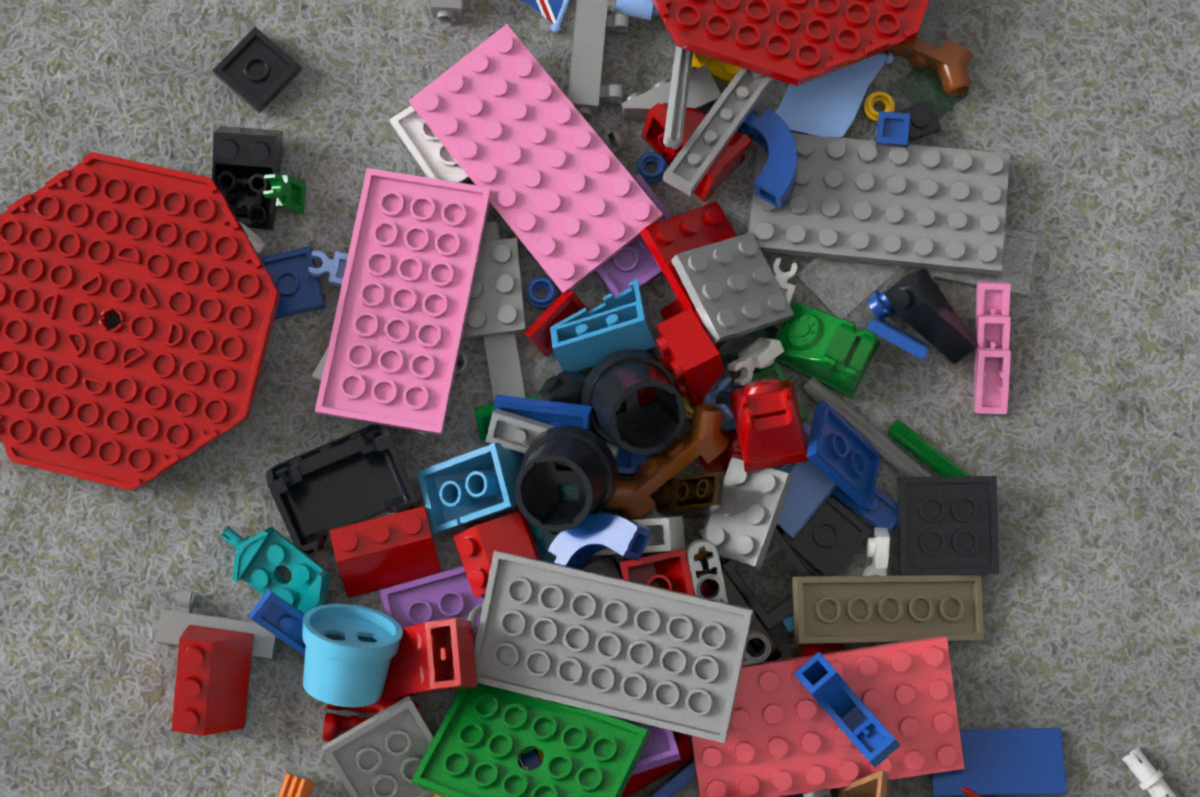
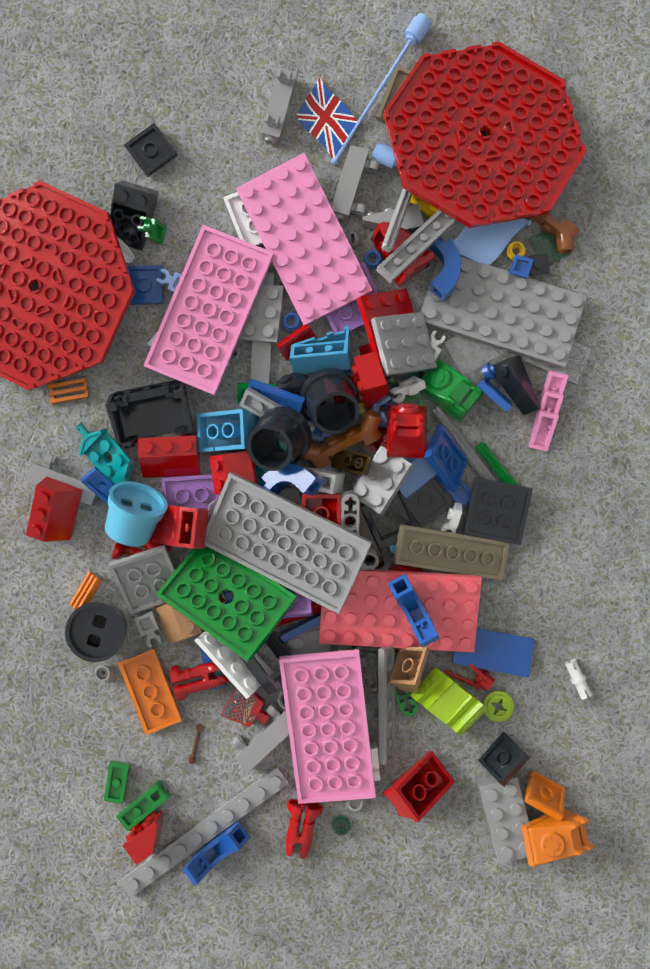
camera: 10 degrees right, 10 degrees up
(169, 490) = (52, 393): none -> orange tile

